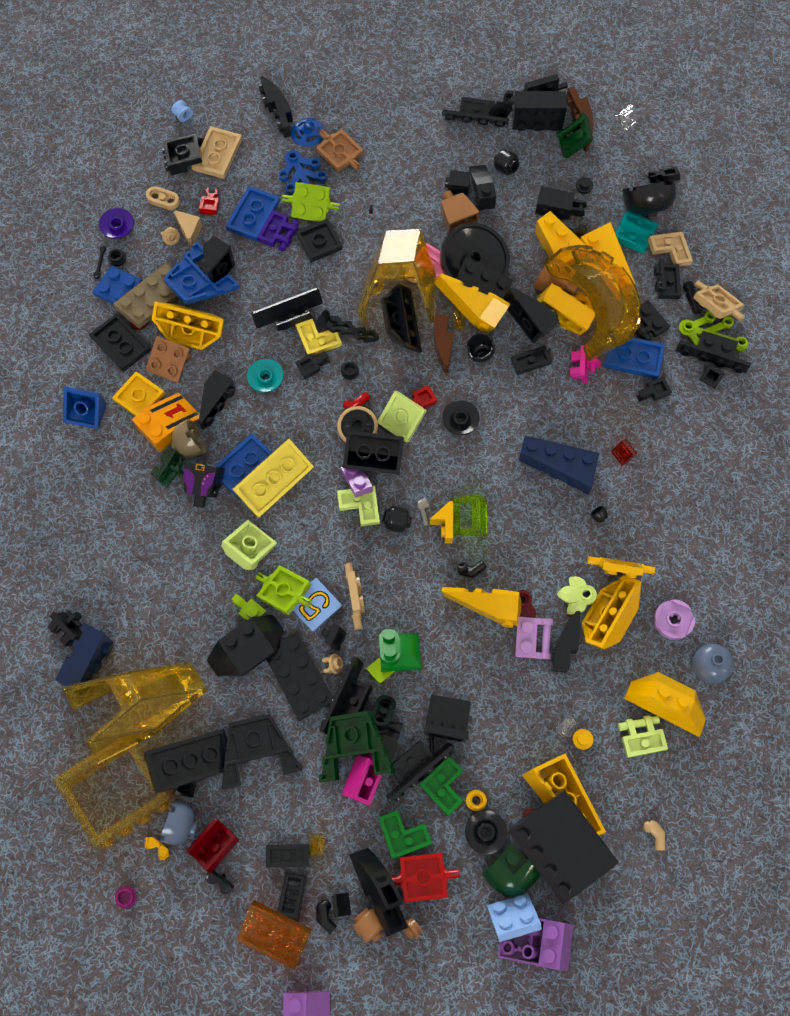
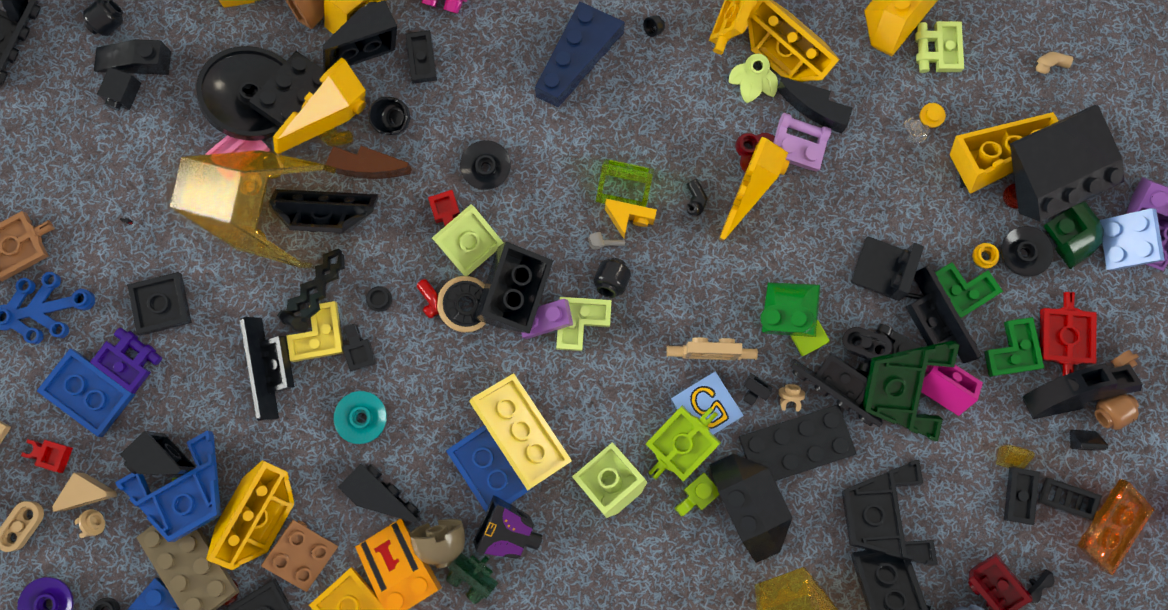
camera: 80 degrees left, 10 degrees up
(310, 202) = (92, 303): lime plate -> none
(322, 916) = (1097, 465): black arm -> none
(457, 210) = (164, 100): medium nougat torso -> none

